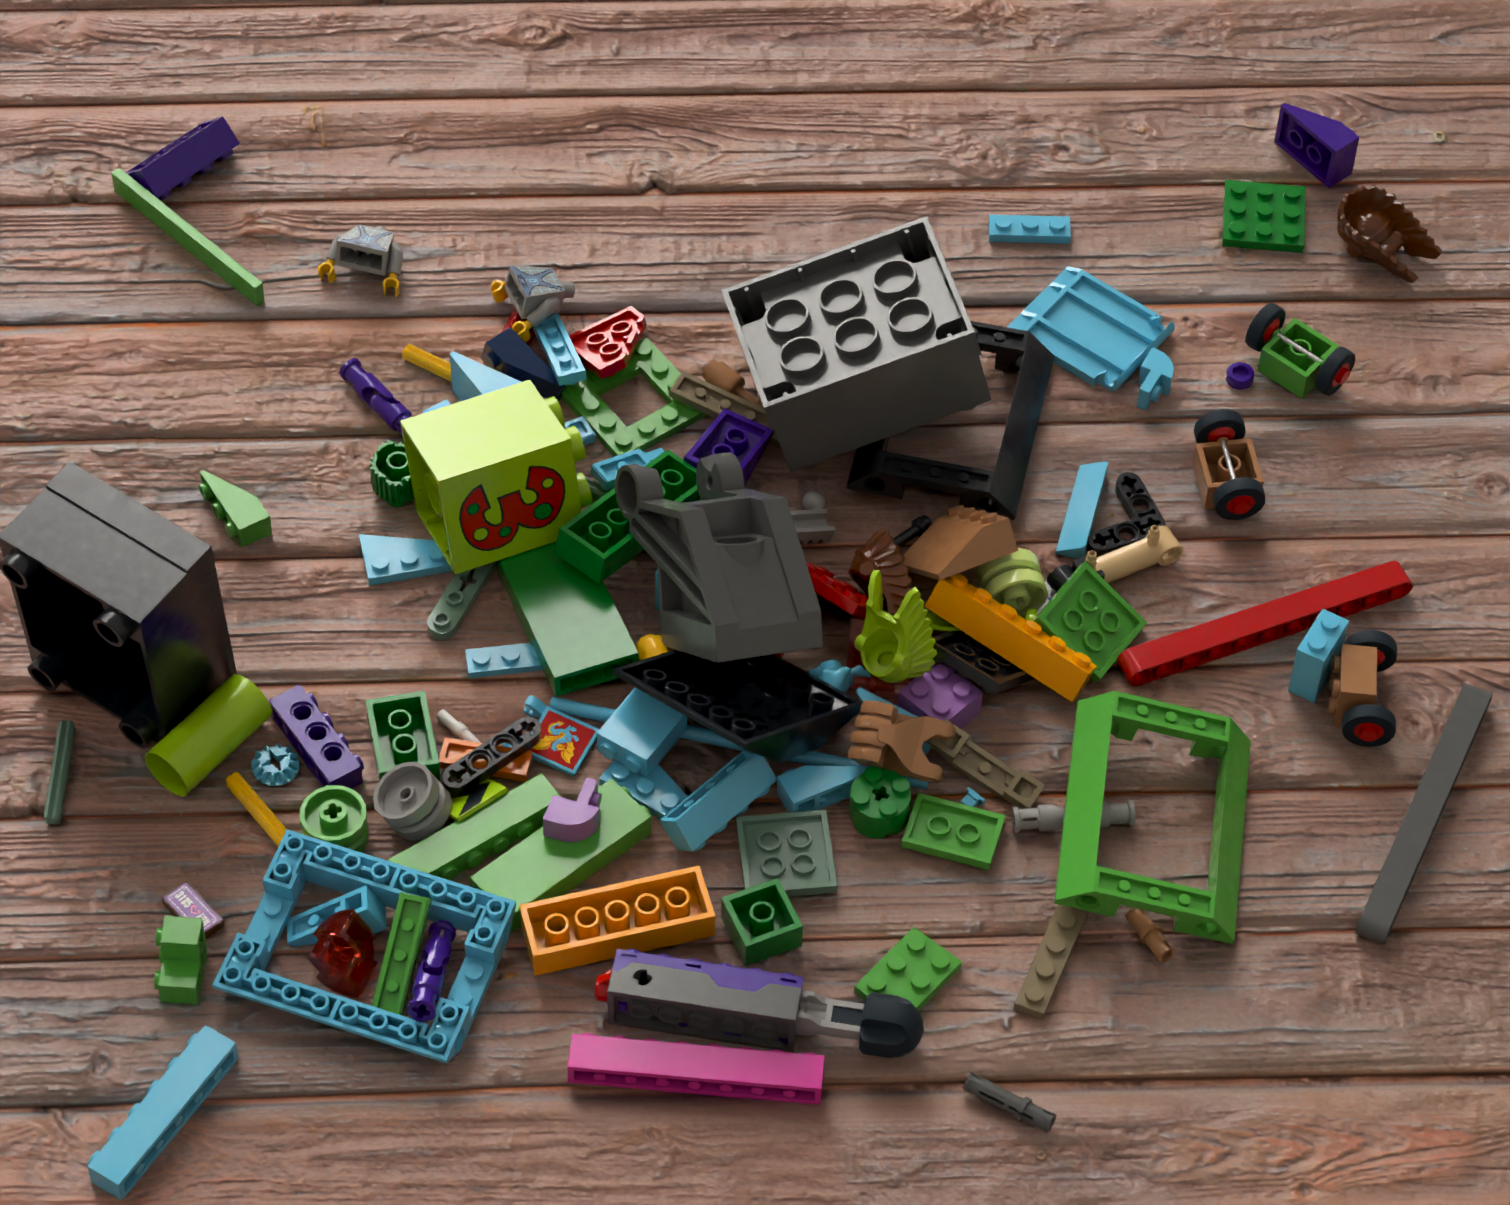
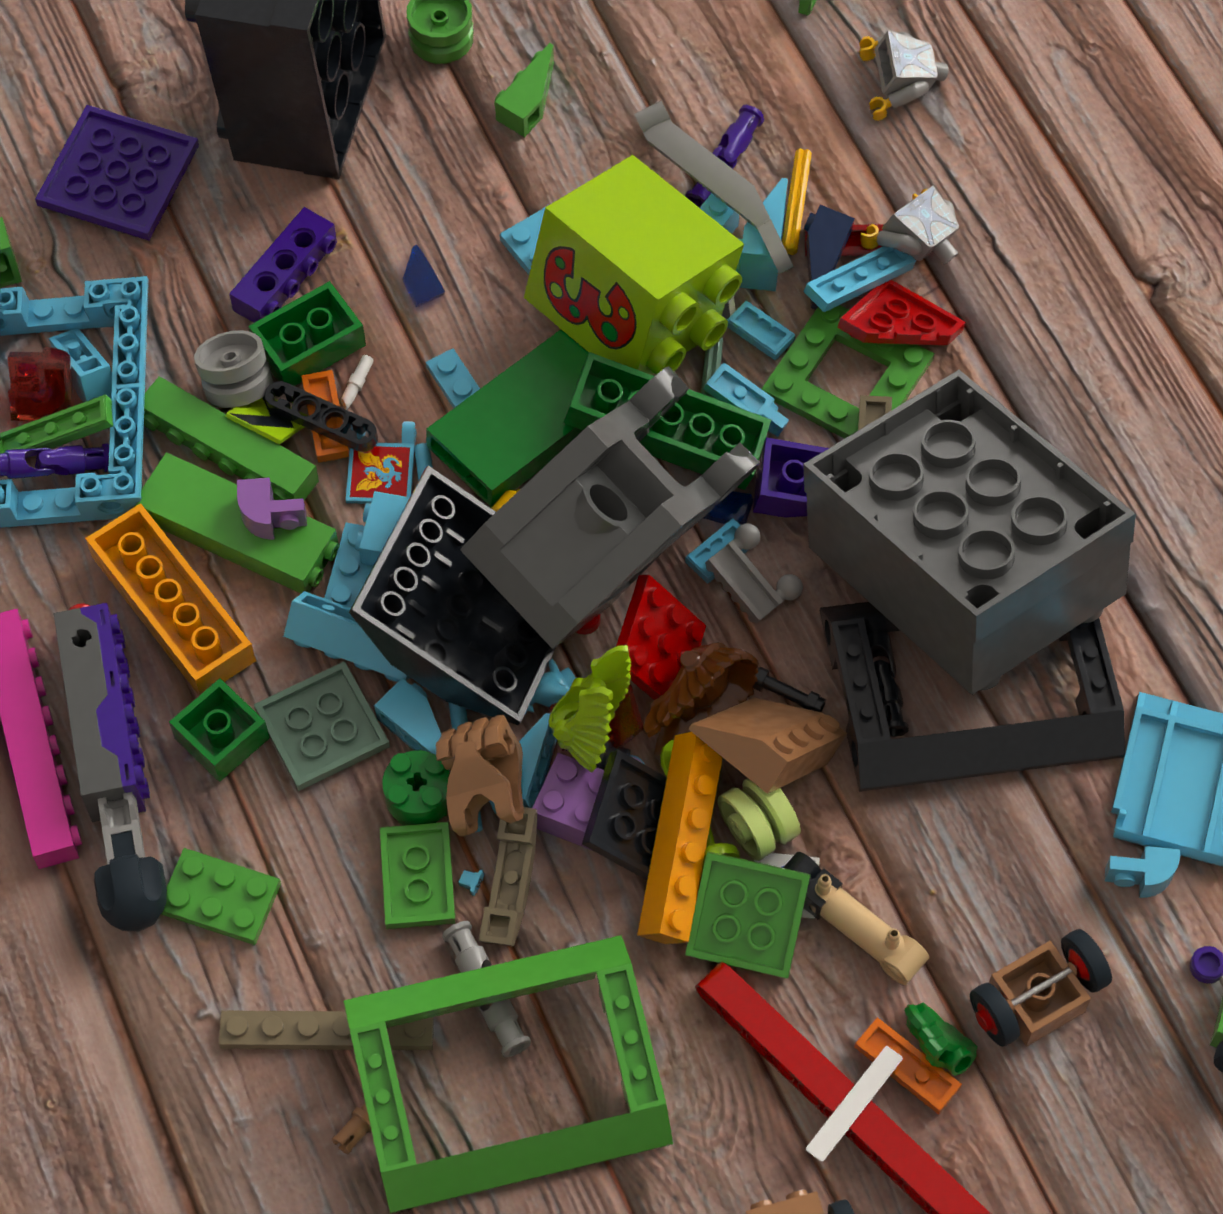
camera: 70 degrees right, 10 degrees up
(59, 772) = (160, 87): sand green axle -> none
(136, 837) = (117, 172): none -> dark purple plate
(187, 902) = (56, 250): tile -> none
(208, 735) = (243, 175): lime piece -> none
(256, 807) = (183, 264): yellow axle -> none
(267, 772) = (246, 258): medium azure gear -> none
(324, 433) = (712, 175): none -> light grey piece
(336, 816) = (187, 316): bright green wheel -> none
(381, 648) = (421, 279): none -> clear blue slope
(456, 602) = (505, 319): sand green piece -> none
(1021, 1108) = (92, 1061): dark grey pin -> none
(1082, 510) = (918, 860): medium azure slope -> none
(1138, 519) = (933, 925): black beam -> none
(1235, 547) = (939, 1040): none -> green rock
(1247, 575) = (914, 1072): none -> orange plate
(1269, 609) = (854, 1103): none -> white sticker
(1316, 654) = (809, 1169): medium azure brick -> none

